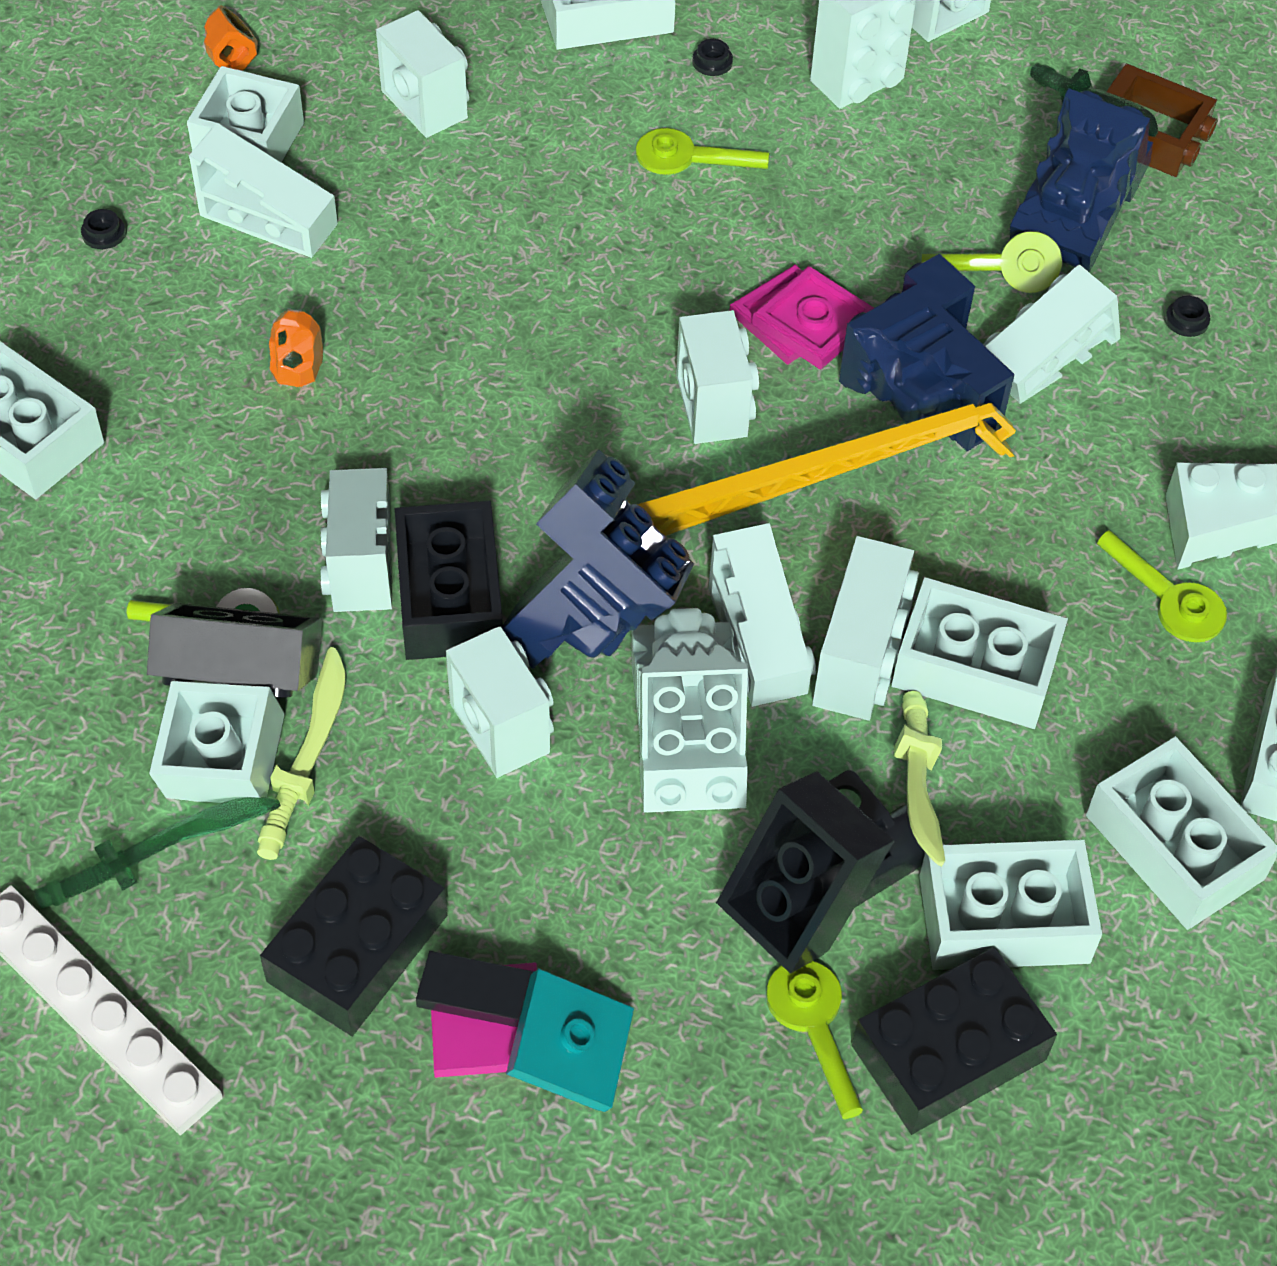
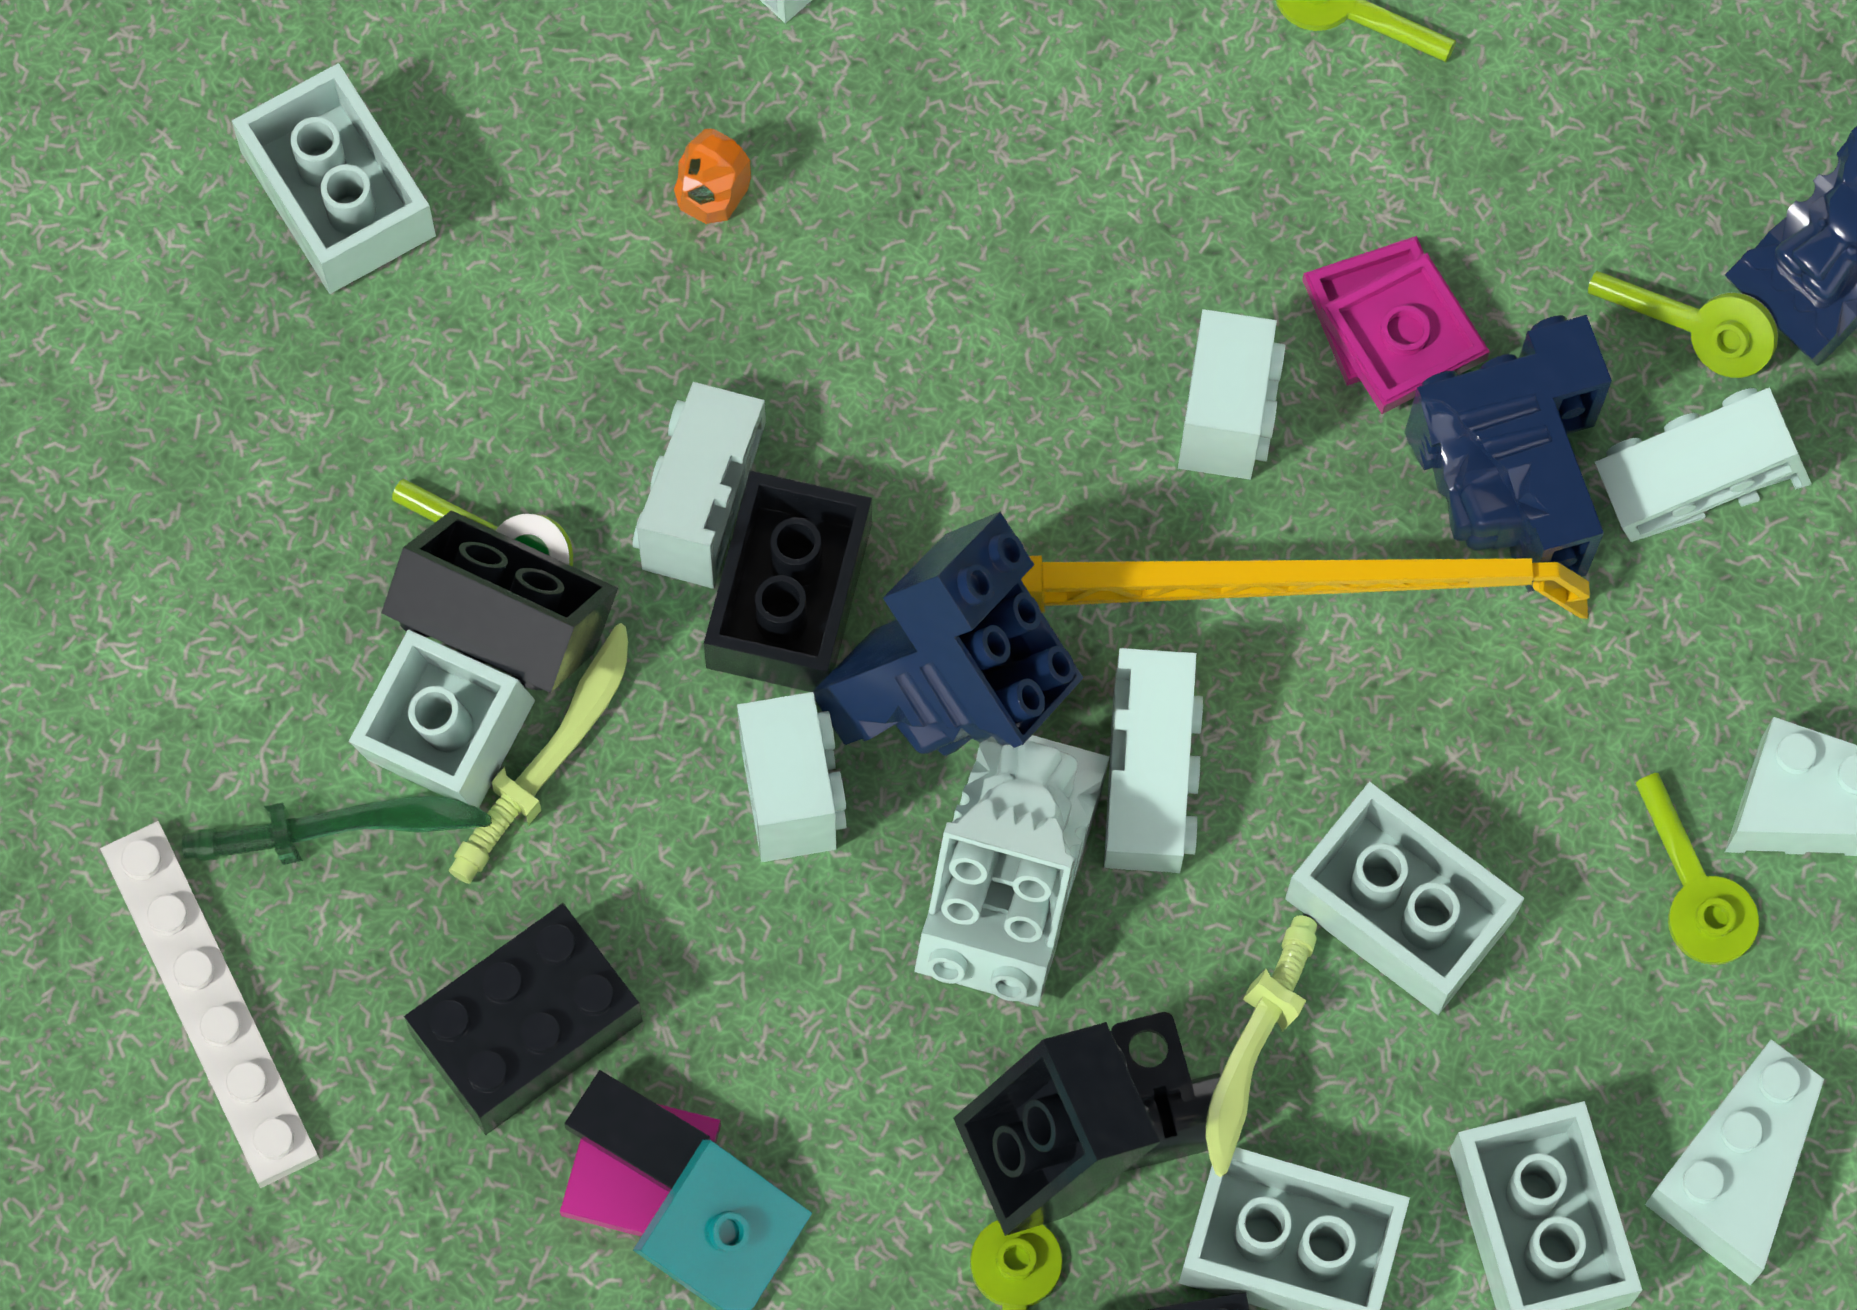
camera: 20 degrees right, 15 degrees up
(866, 629) = (1271, 822): light aqua brick -> none

